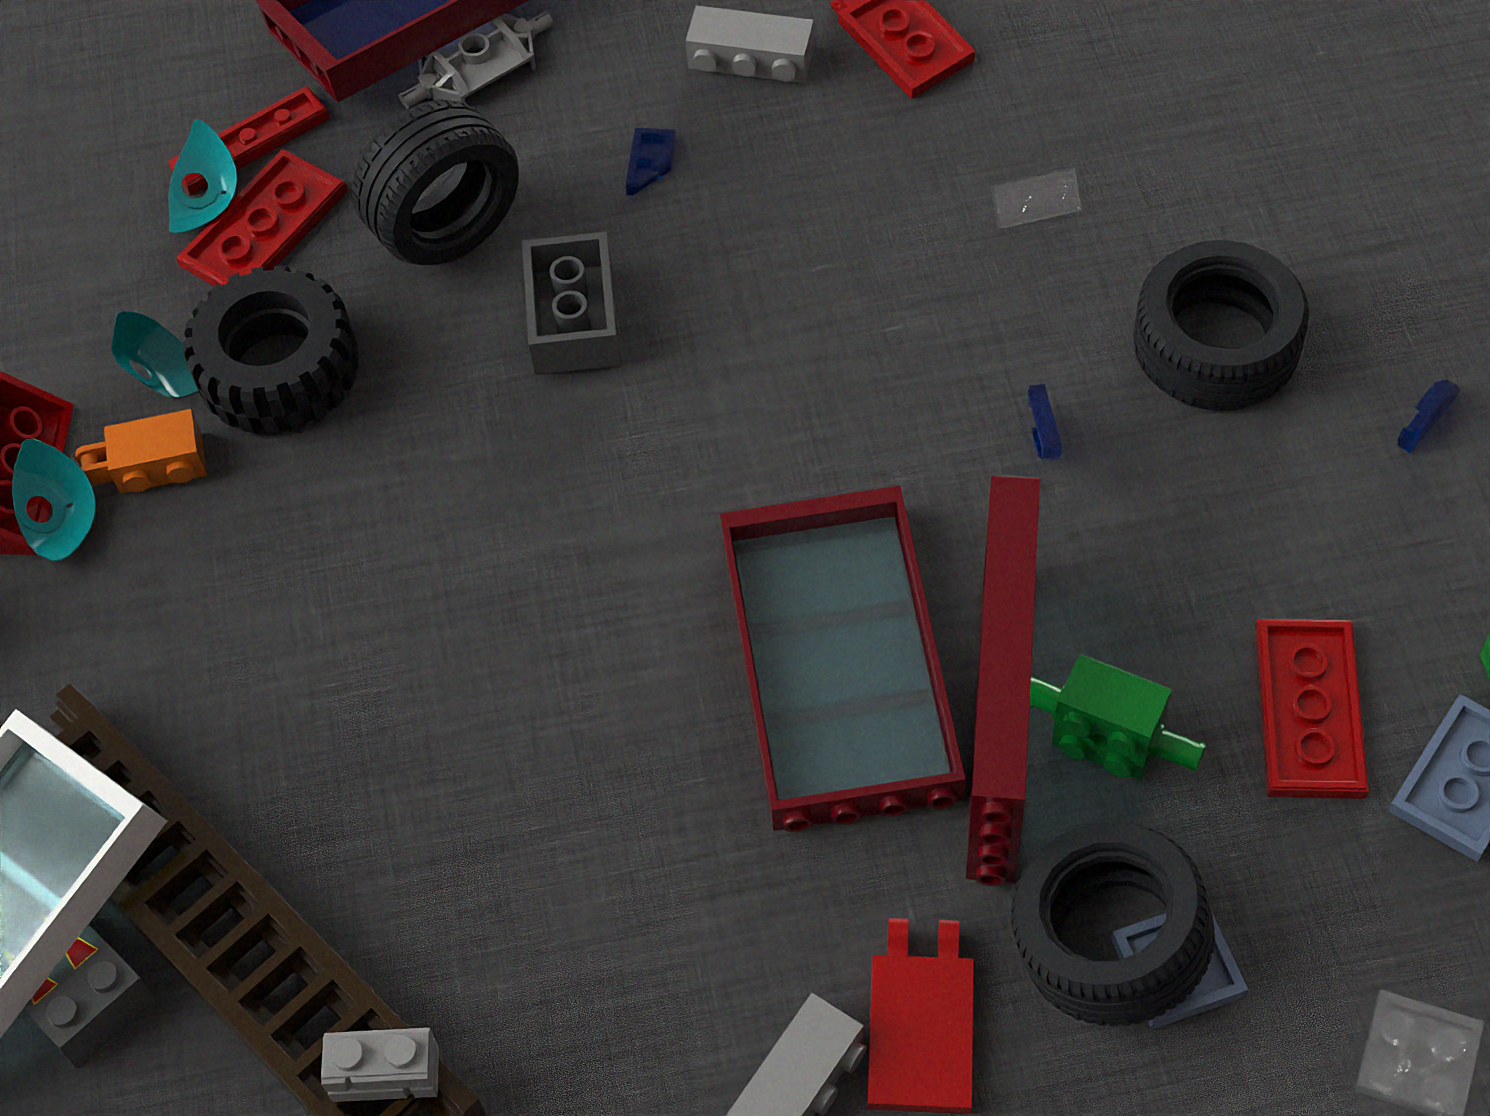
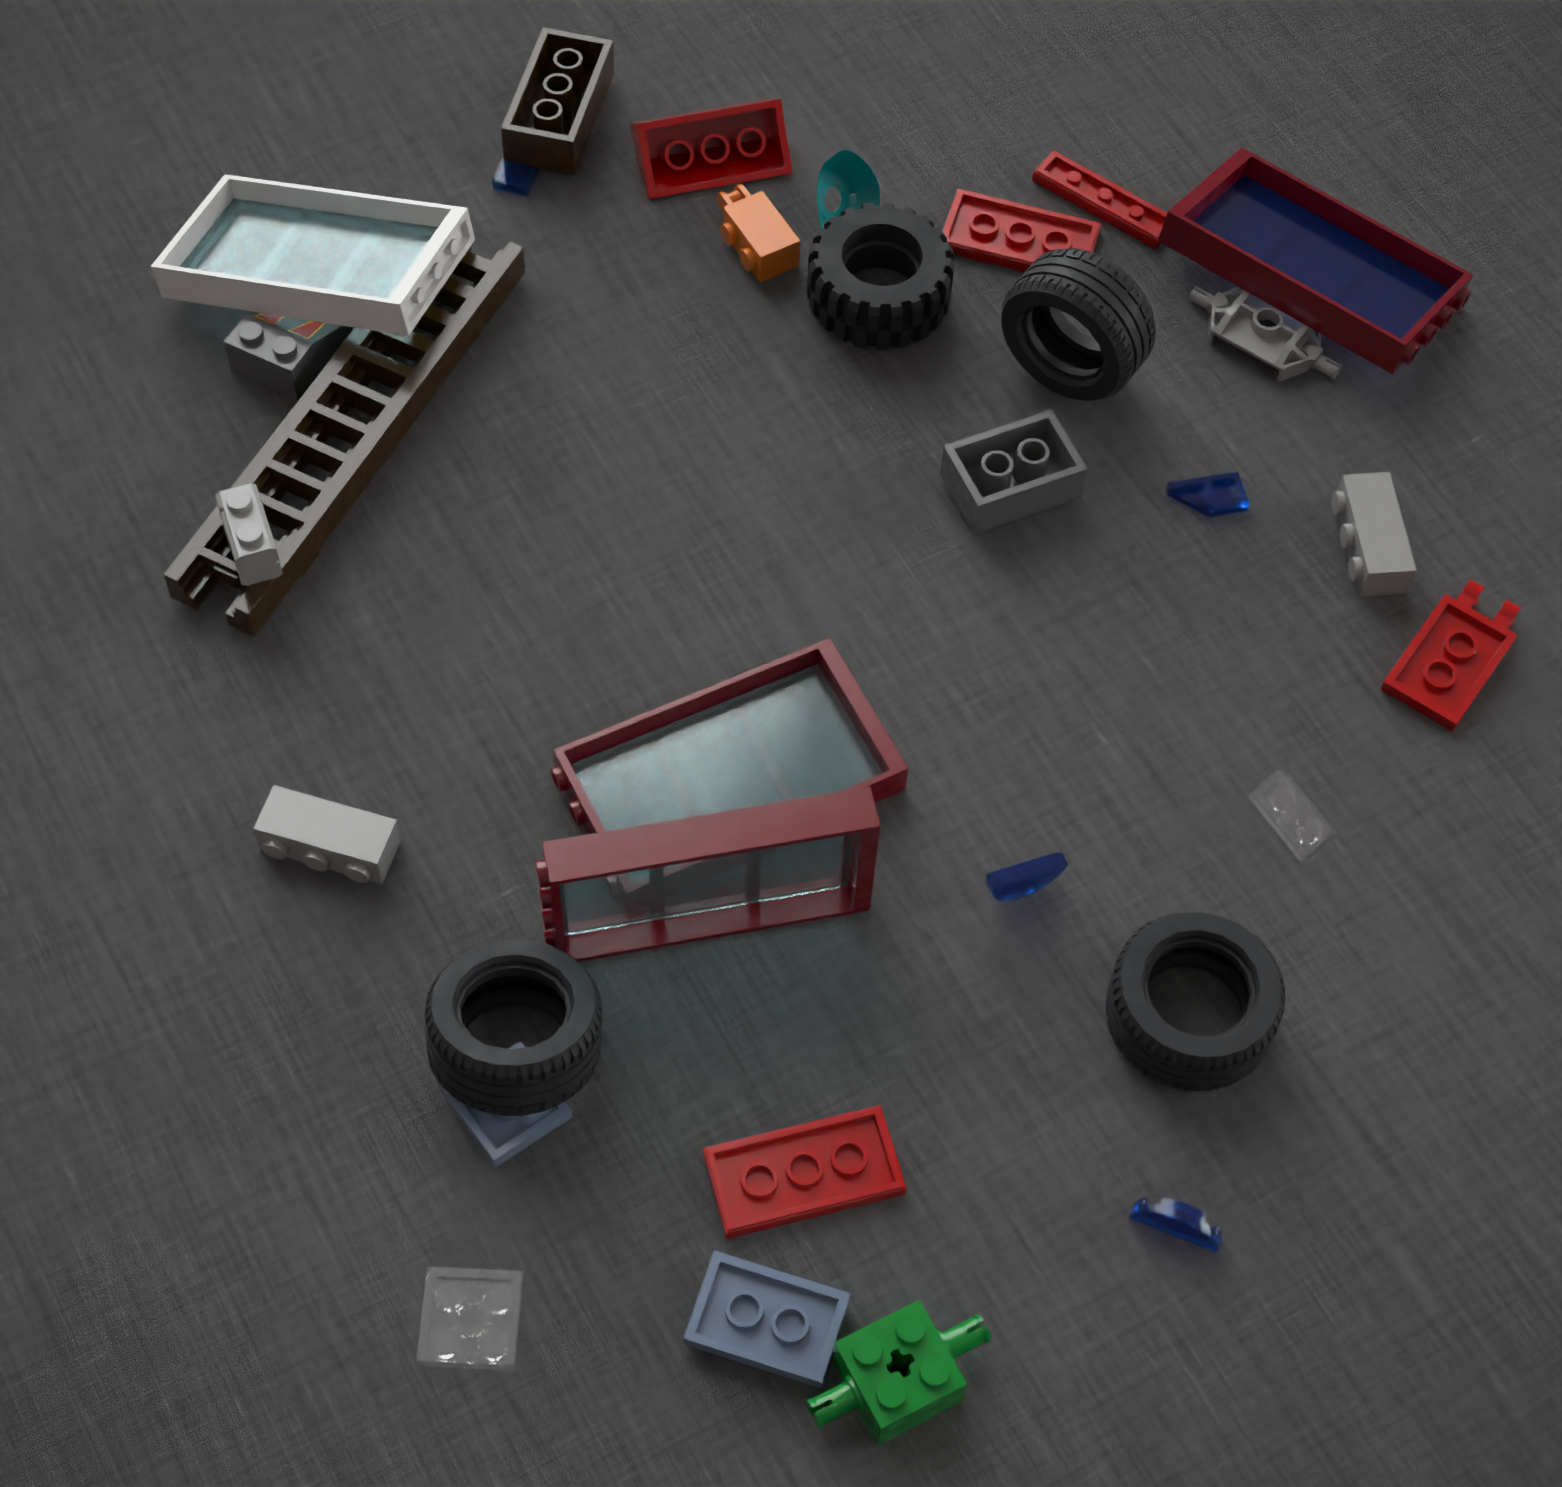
camera: 65 degrees right, 0 degrees up
(56, 477) = (708, 171): teal piece -> none
(210, 157) = (1011, 182): teal piece -> none
(921, 1026) = (406, 918): red tile -> none
(1113, 719) = (718, 989): green brick -> none

